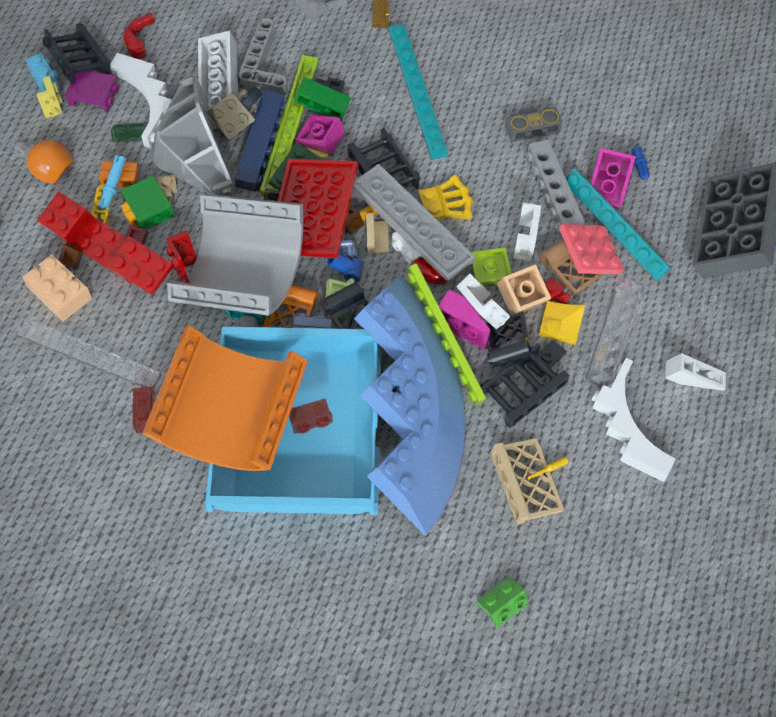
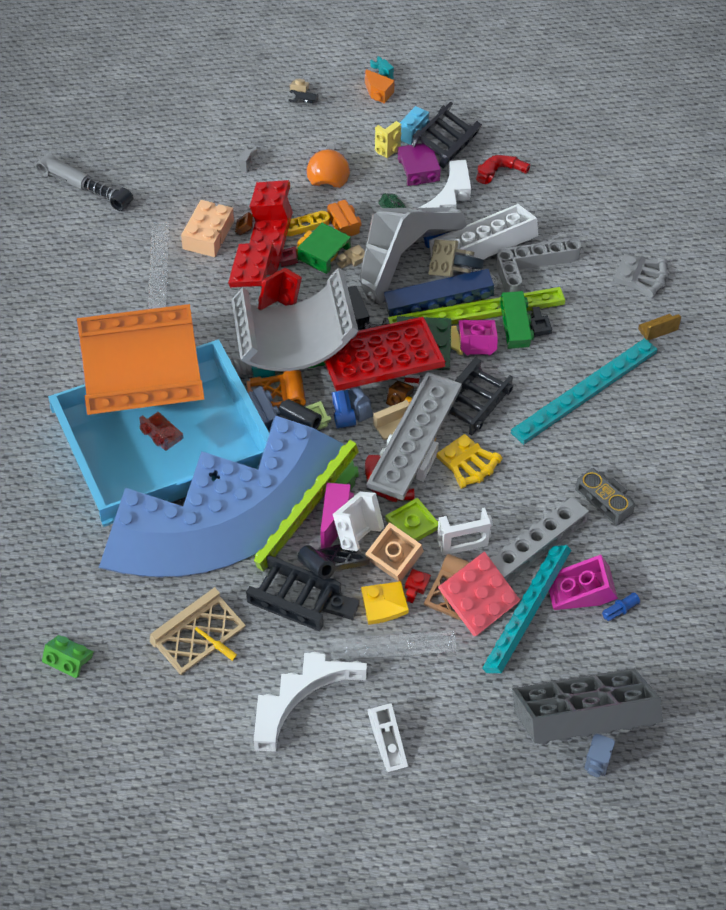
camera: 65 degrees right, 10 degrees down
(109, 189) = (331, 212): medium azure pin -> none

